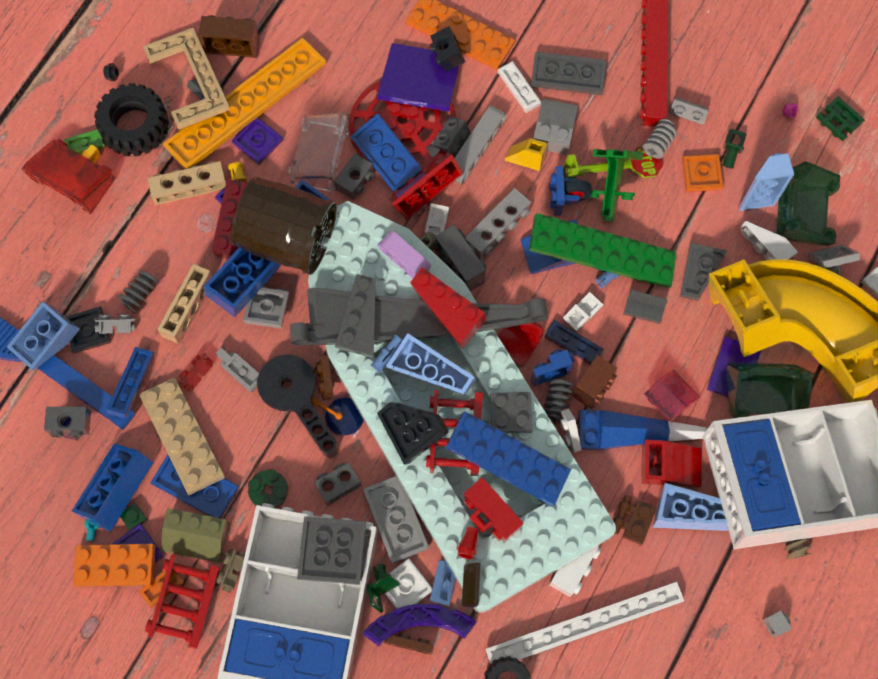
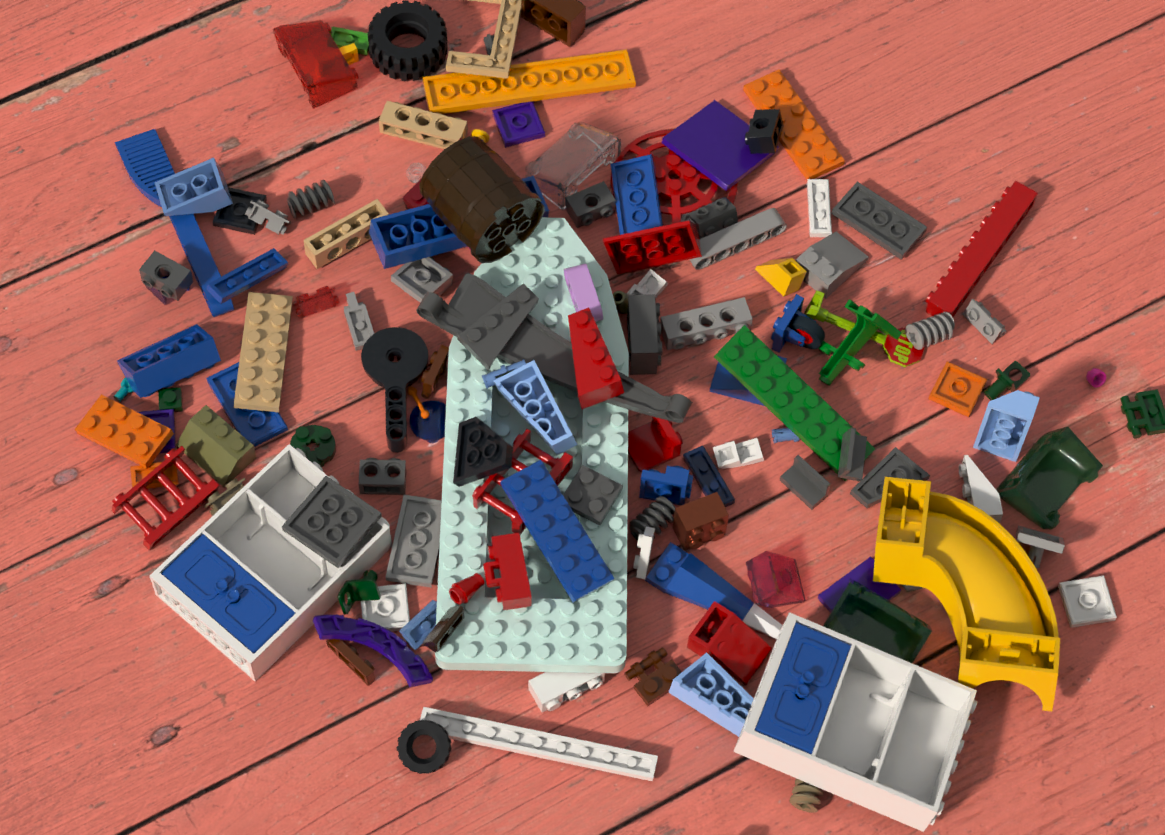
camera: 30 degrees right, 10 degrees down
(667, 268) = (852, 455): none -> dark grey panel

